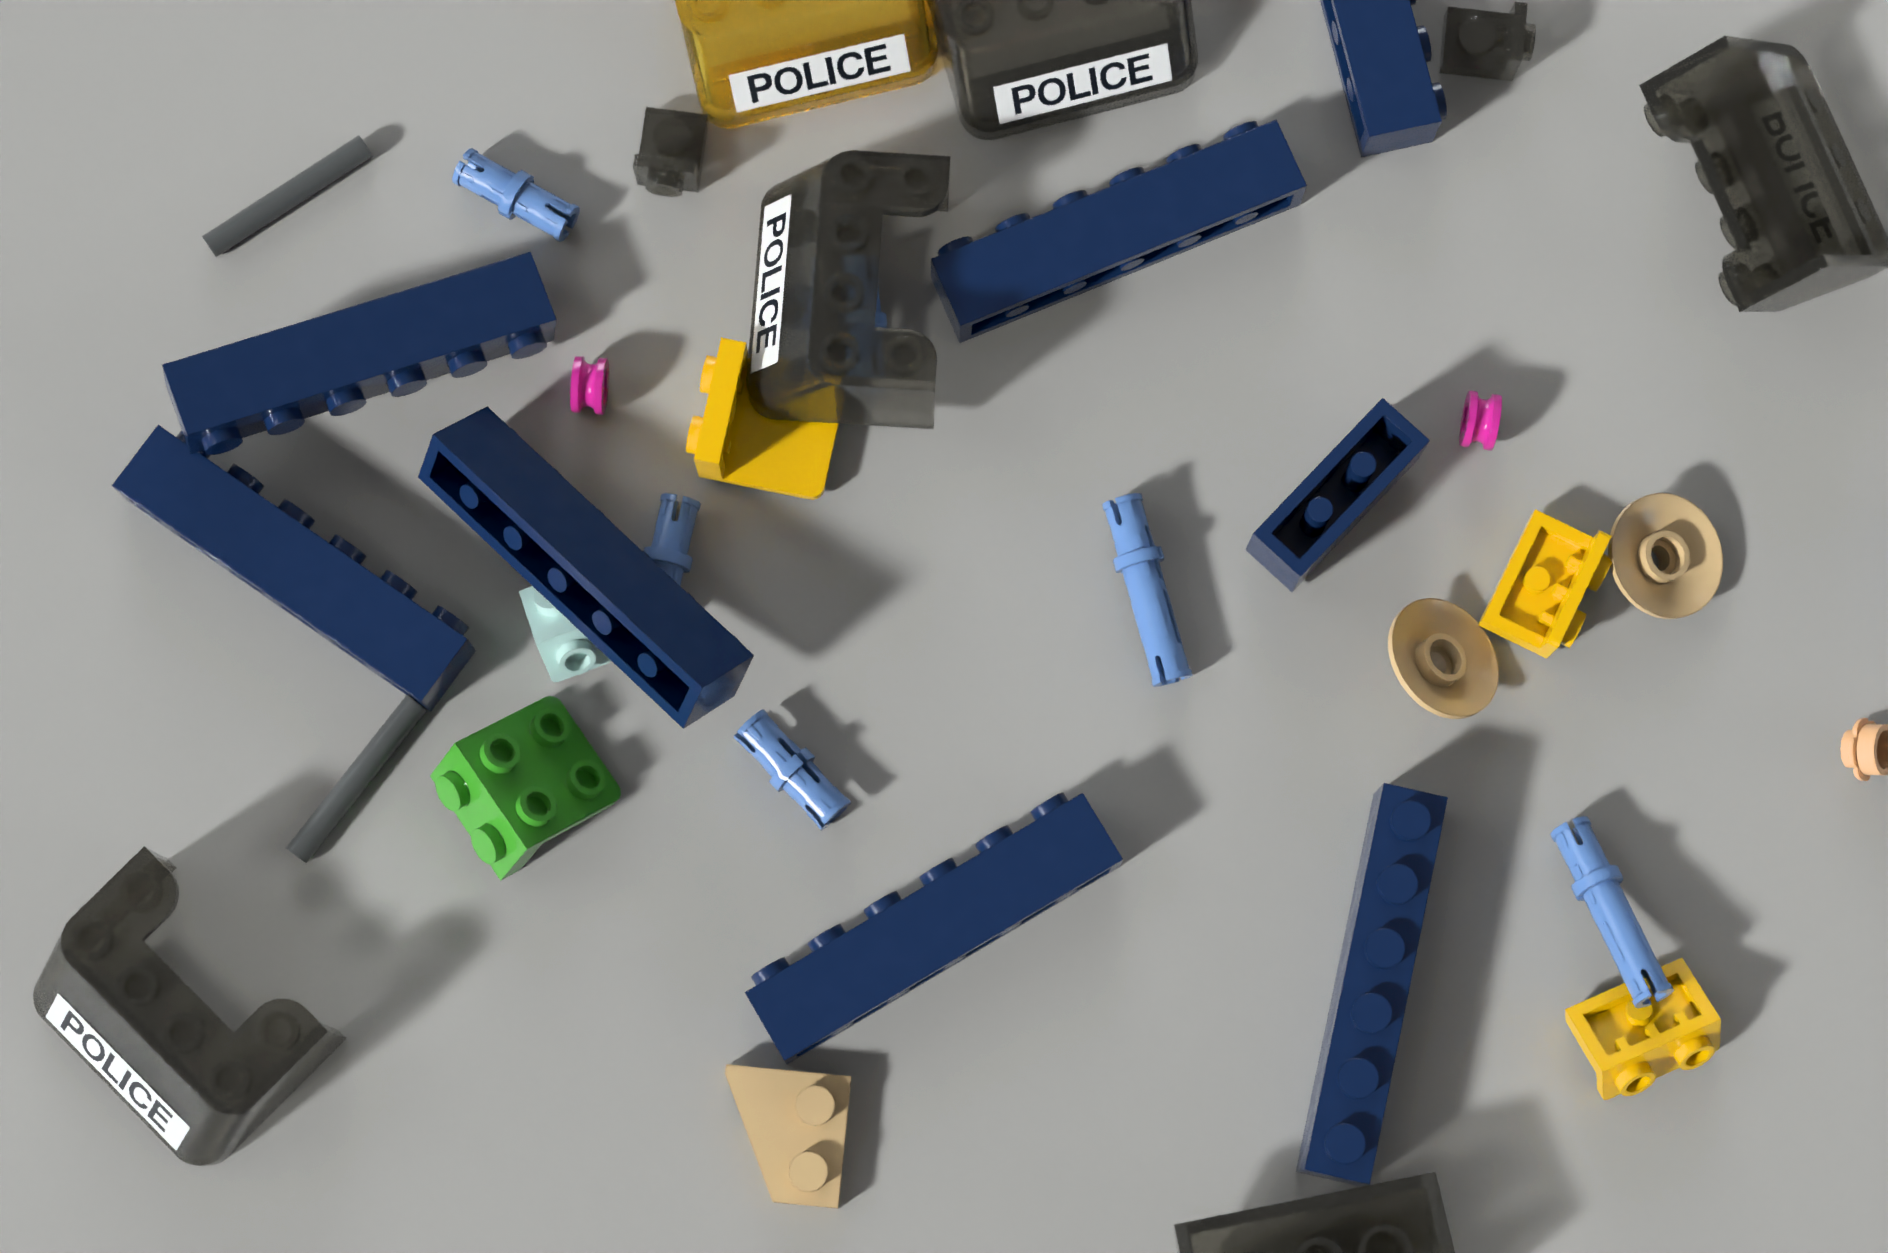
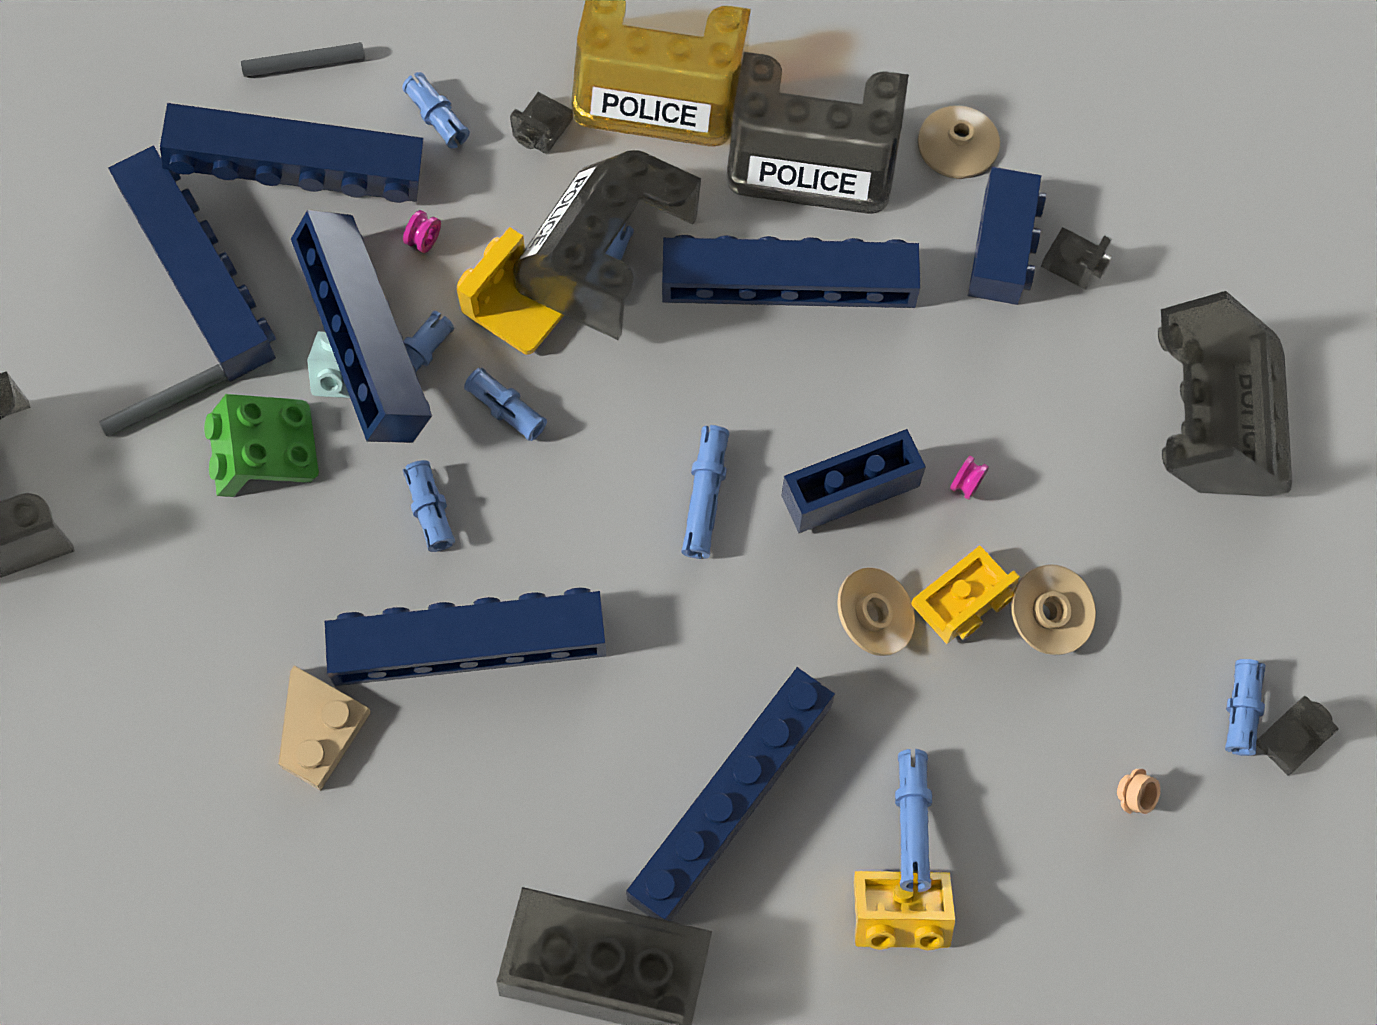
camera: 25 degrees right, 10 degrees down
(823, 583) = (505, 404): none -> medium blue pin

